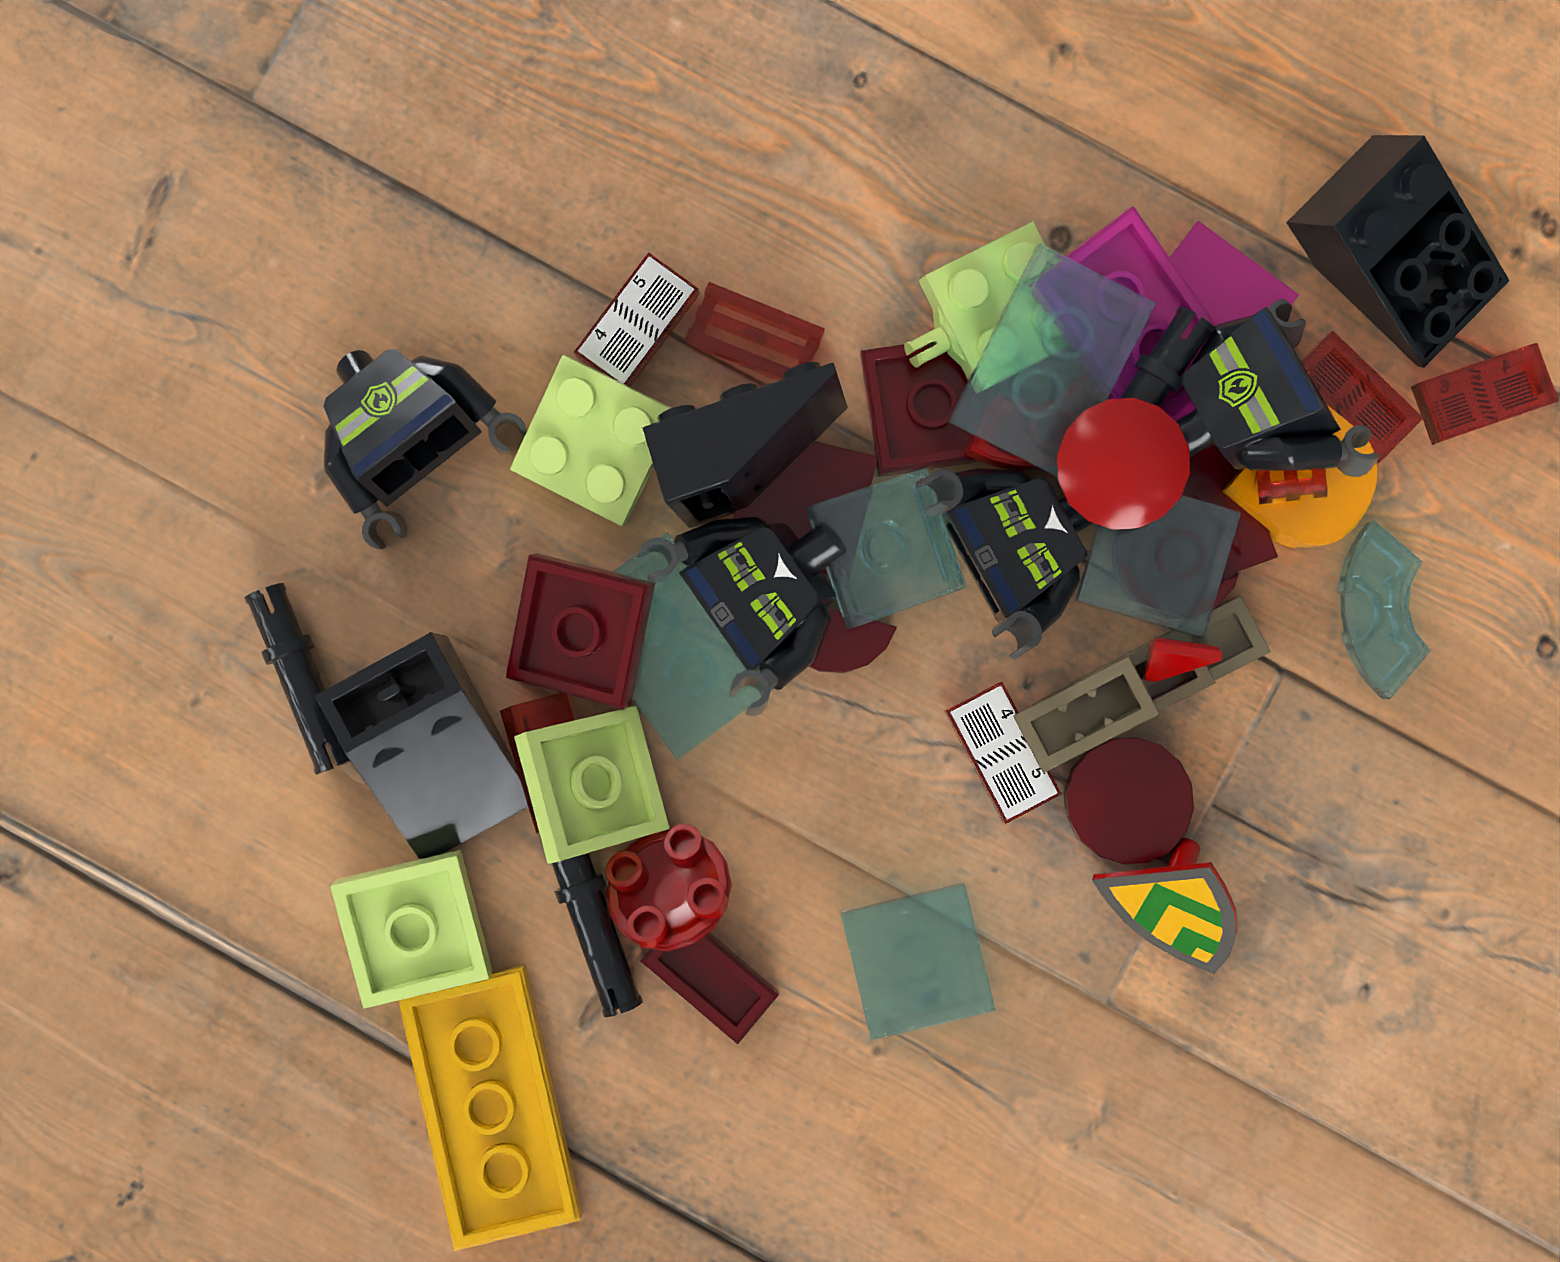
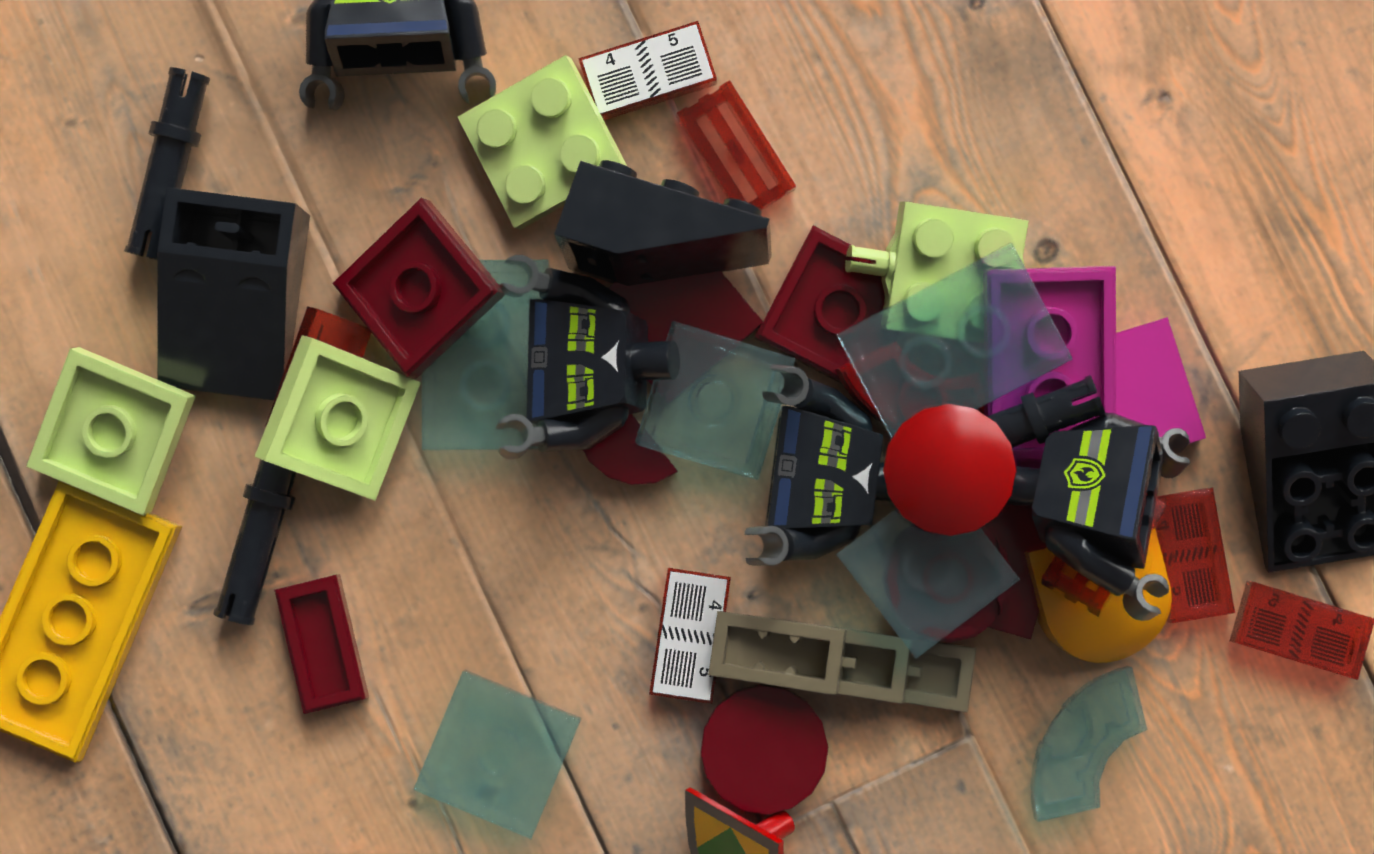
camera: 35 degrees right, 0 degrees up
(668, 888) = (338, 547): red dish -> none
(1174, 657) = (881, 657): red slope -> none

